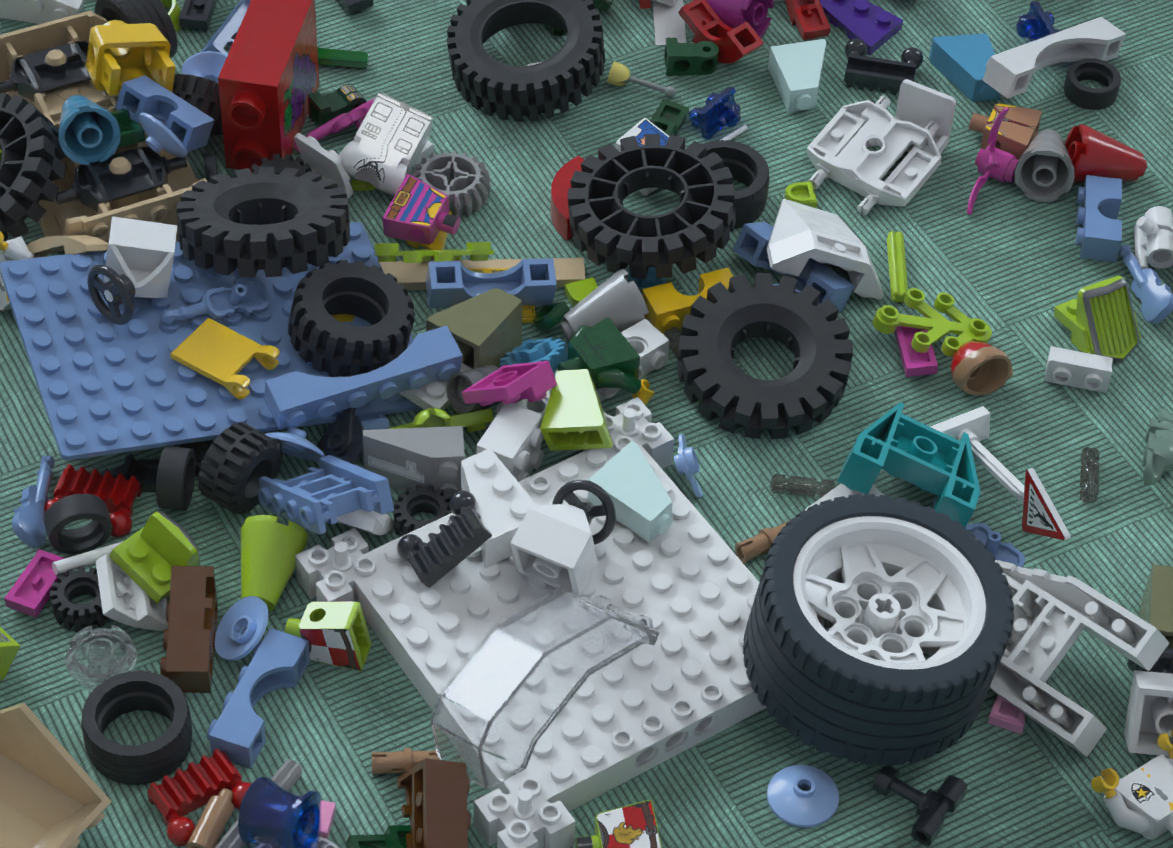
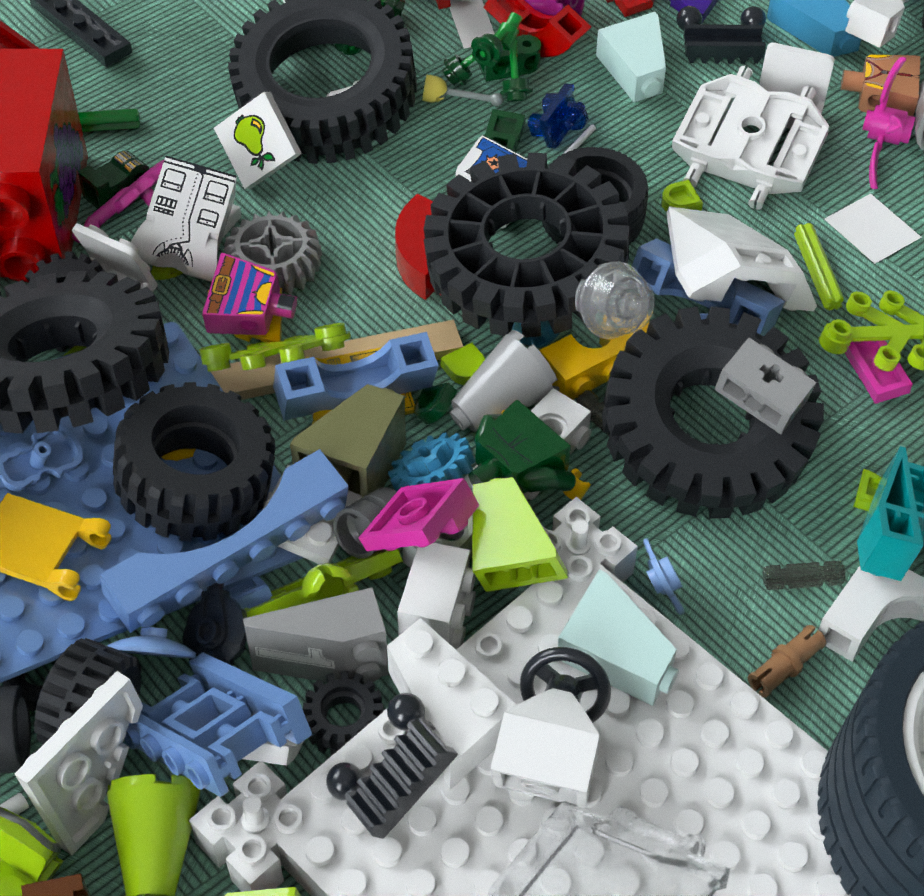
camera: 10 degrees left, 5 degrees up
(224, 500) = (75, 766): none -> white plate
(458, 92) = (257, 140): none -> white tile
(666, 49) = (486, 52): none -> dark green plant
(704, 257) = (614, 300): none -> clear cone
(805, 339) = (765, 385): none -> light grey brick
(956, 245) = (872, 228): none -> white sticker

